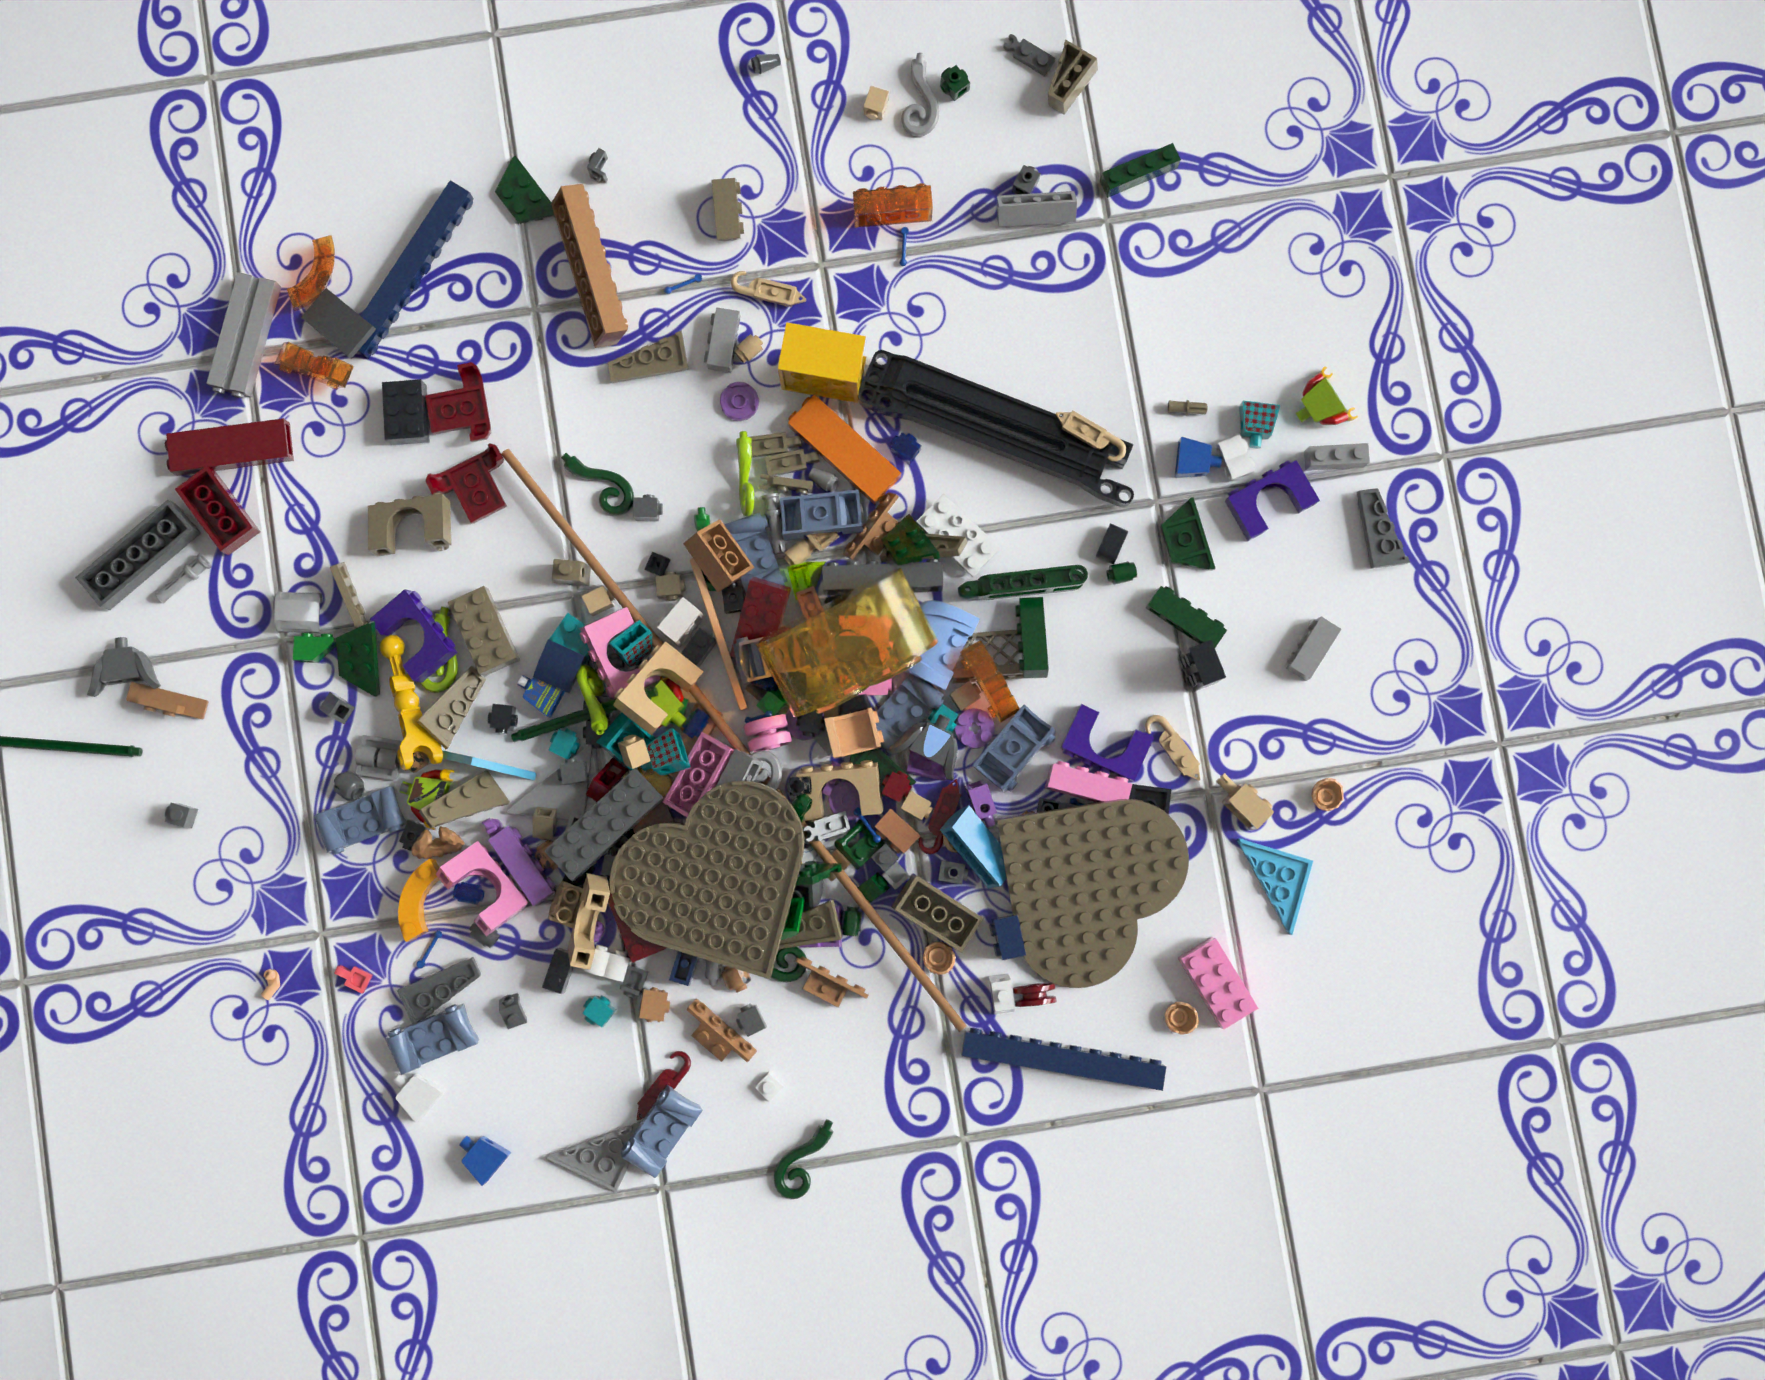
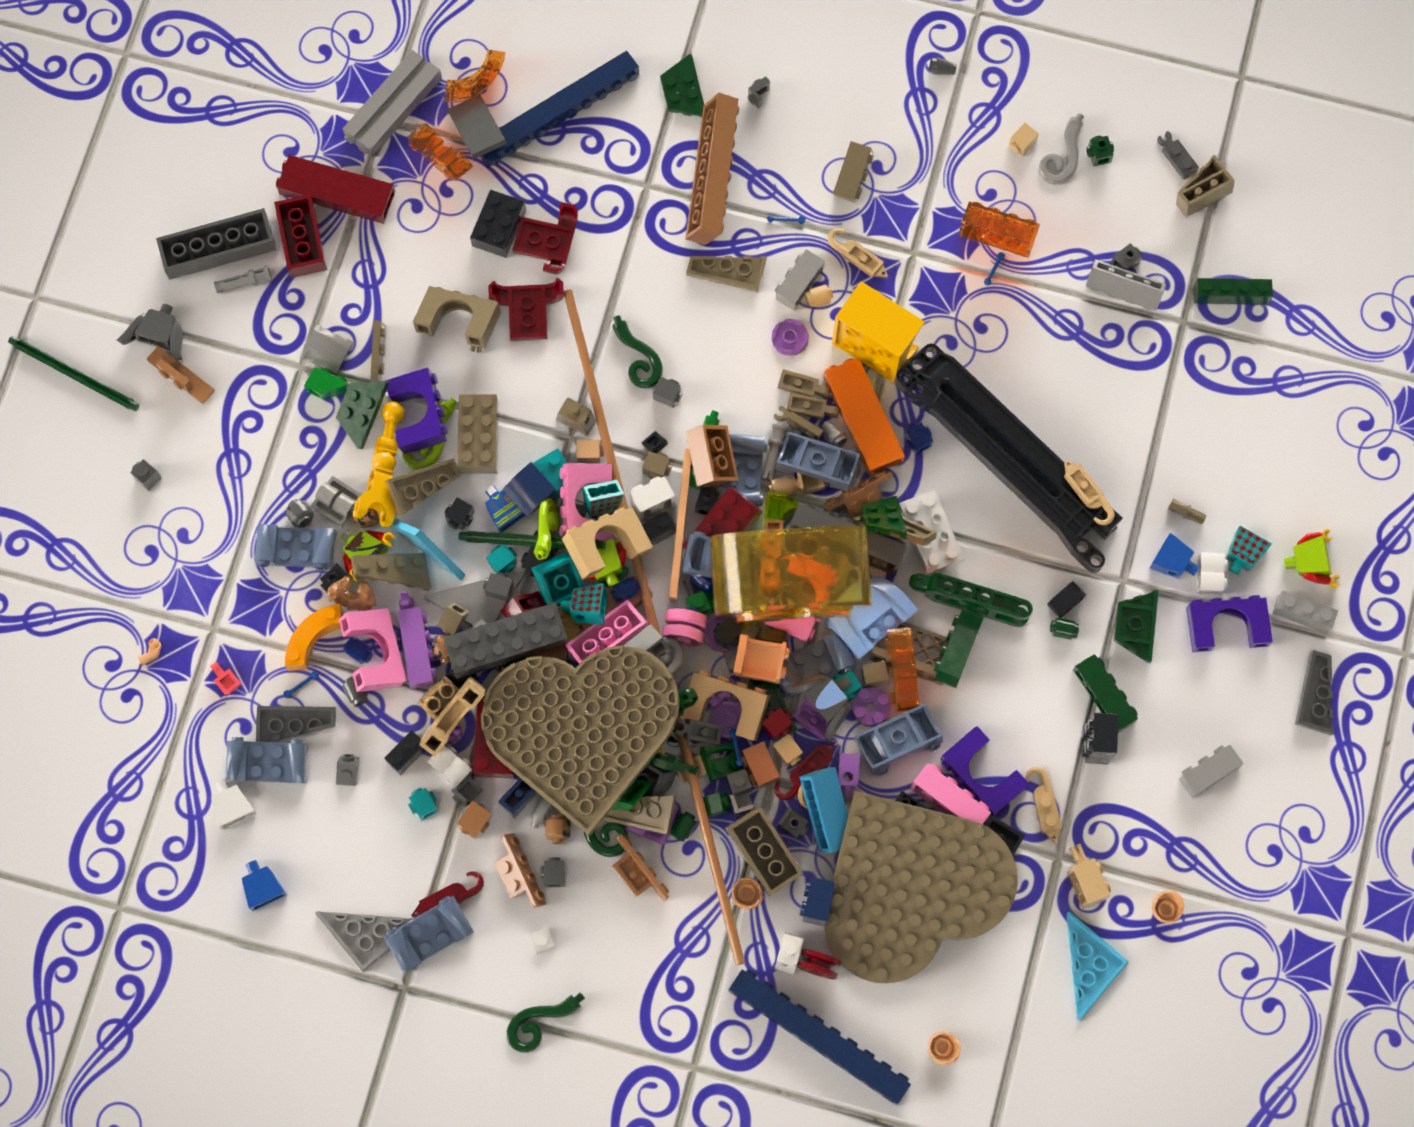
camera: 25 degrees right, 10 degrees down
(337, 708) = (321, 442): dark grey brick -> none
(634, 751) = (560, 588): tan brick -> none
(746, 490) = (761, 413): lime plant -> none
(800, 785) = (691, 679): black piece -> none
(1218, 983) = (992, 1031): bright pink brick -> none

